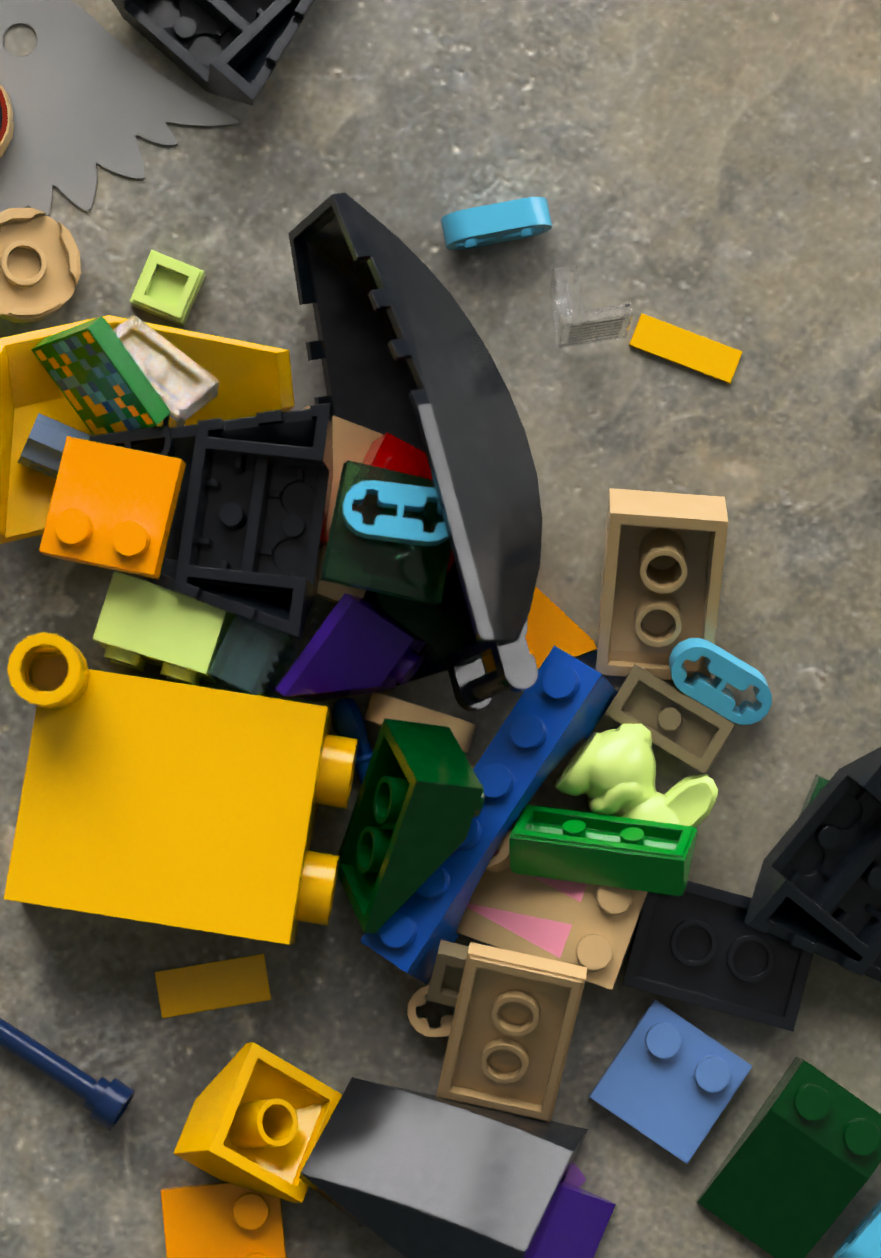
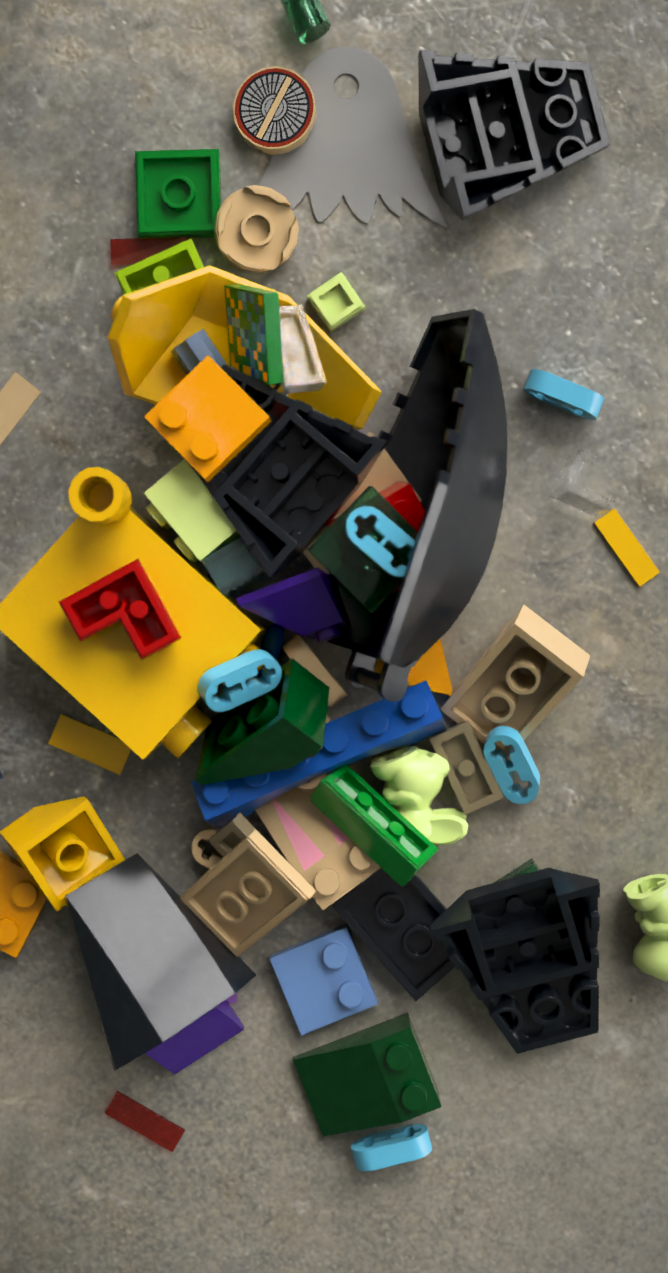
camera: 25 degrees right, 5 degrees up
(153, 765) = (123, 597): none -> red brick
(344, 783) = (239, 680): none -> medium azure beam

